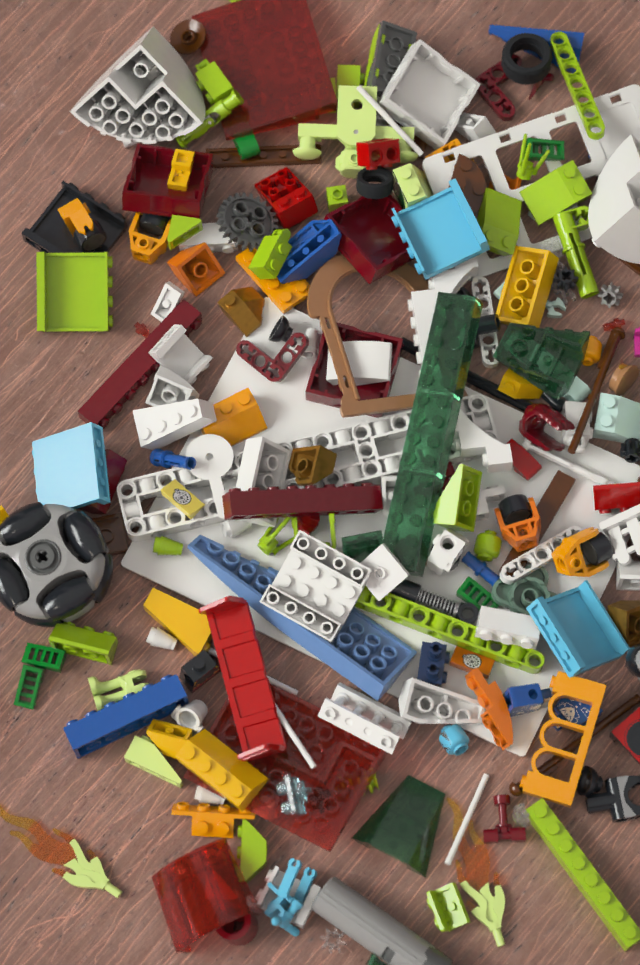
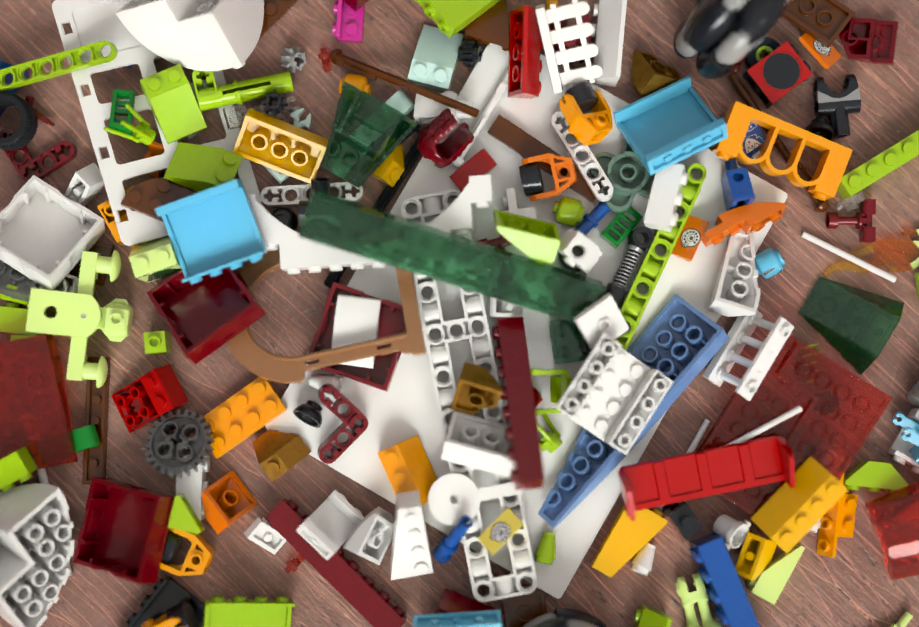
camera: 85 degrees left, 15 degrees up
(181, 170) = (110, 514): yellow slope -> none
(222, 107) = (39, 464): lime piece -> none
(271, 254) = (222, 418): lime brick -> none
(296, 795) = (833, 429): clear light blue hips -> none
(310, 250) = (221, 379): blue wedge -> none
(375, 191) = (135, 295): black tyre -> none
(378, 152) = (112, 292): red brick -> none
(395, 126) = (73, 277): white axle -> none
(432, 663) = (692, 278): dark blue brick -> none
(623, 378) = (388, 54): medium nougat piece -> none

